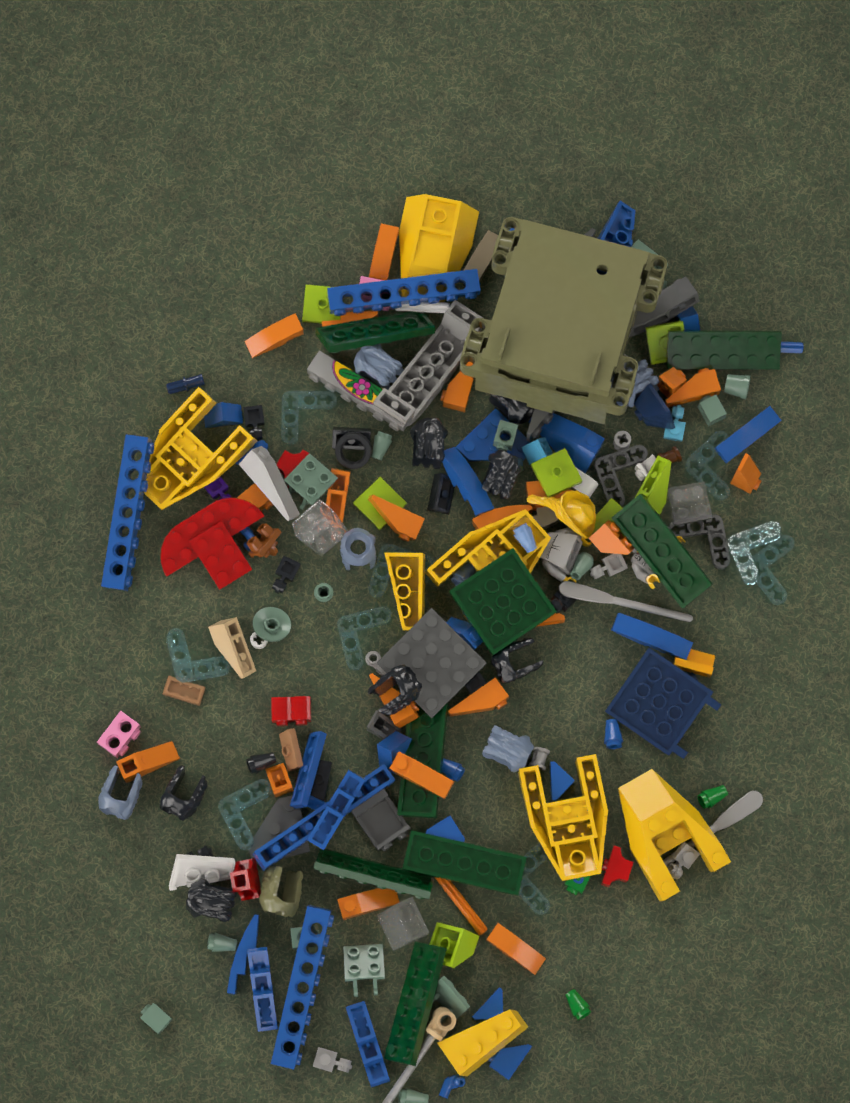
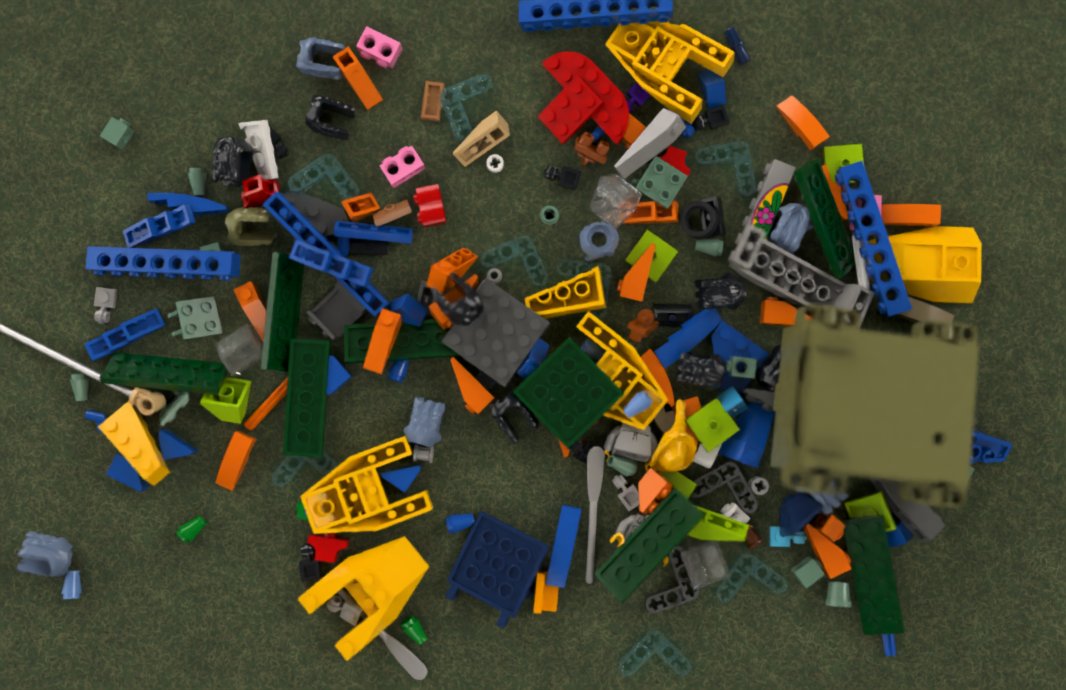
camera: 80 degrees right, 10 degrees up
(248, 730) = (404, 170): none -> bright pink brick
(259, 762) = (375, 185): black cone -> none
(274, 617) = (519, 169): sand green dish -> none
(358, 695) = (455, 263): none -> orange slope
(448, 522) = (642, 325): none -> dark orange hips
(635, 889) = (310, 568): none -> black plate
(743, 549) = (668, 625): clear light blue beam -> none
(747, 434) = (788, 612): blue slope -> none
(747, 475) = (745, 618): orange slope -> none

